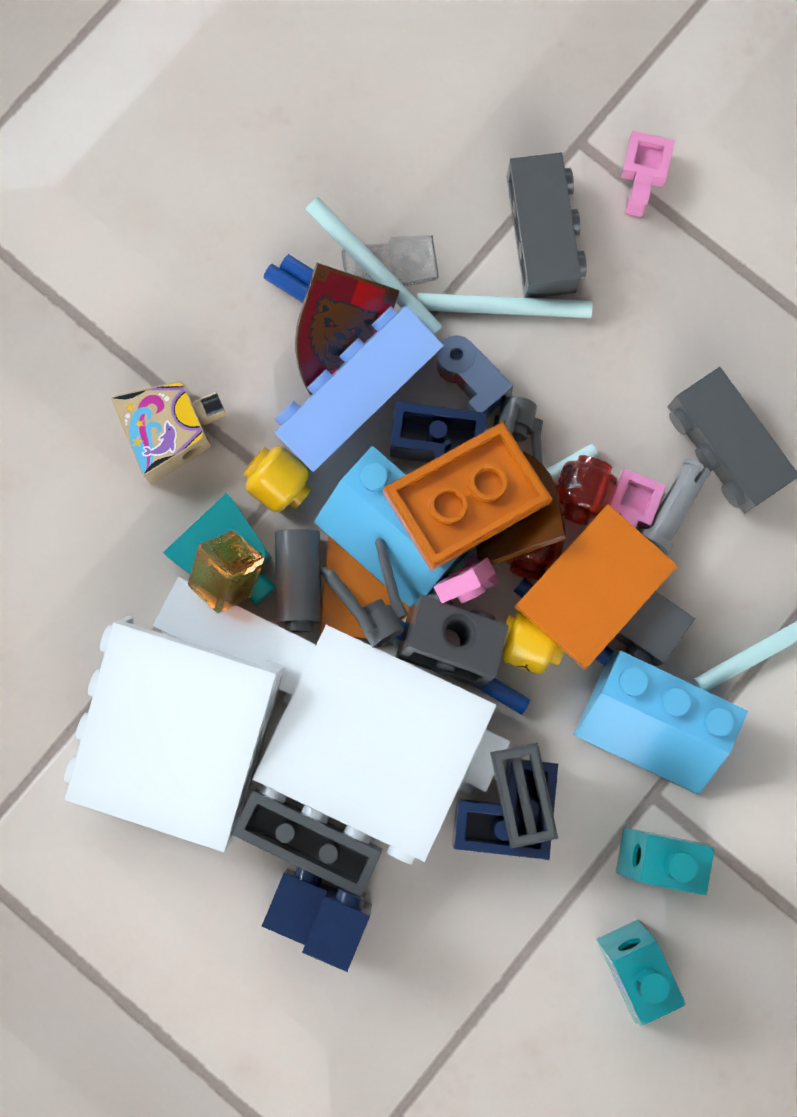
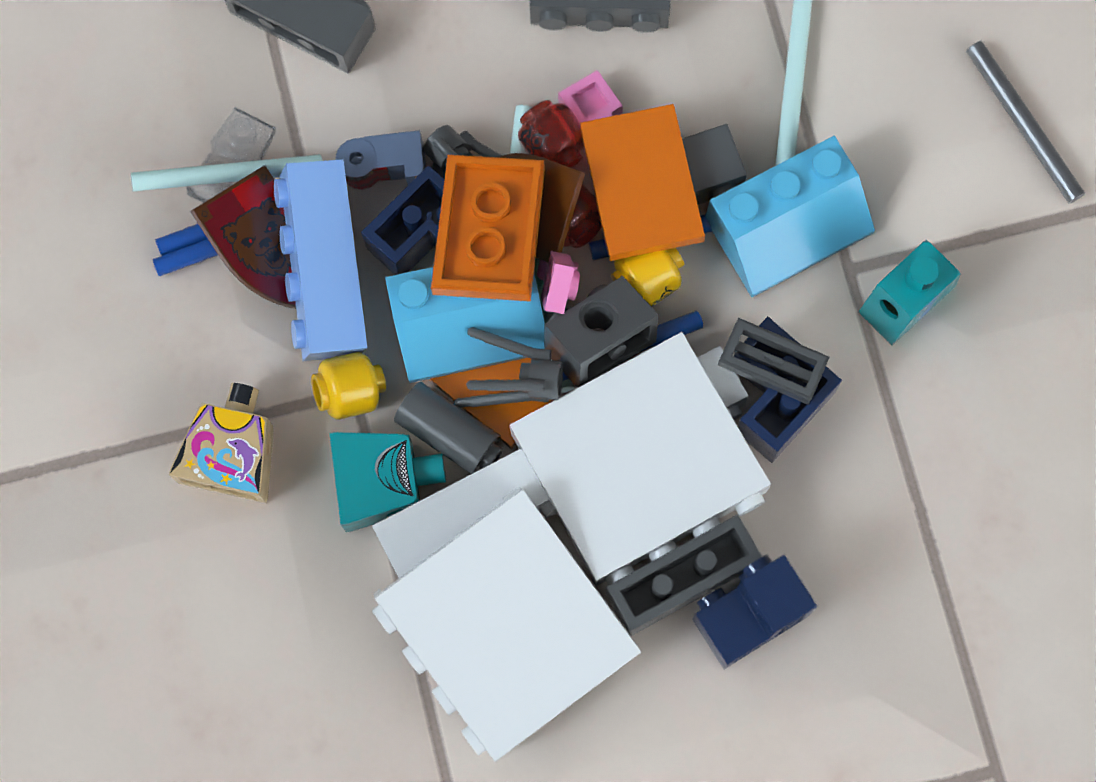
camera: 50 degrees left, 5 degrees down
(225, 571) = (399, 478): clear orange panel -> none
(506, 305) = (343, 90): light aqua bar -> none
(641, 973) = (990, 378): teal torso -> none
(676, 505) = (618, 70): light grey pin -> none

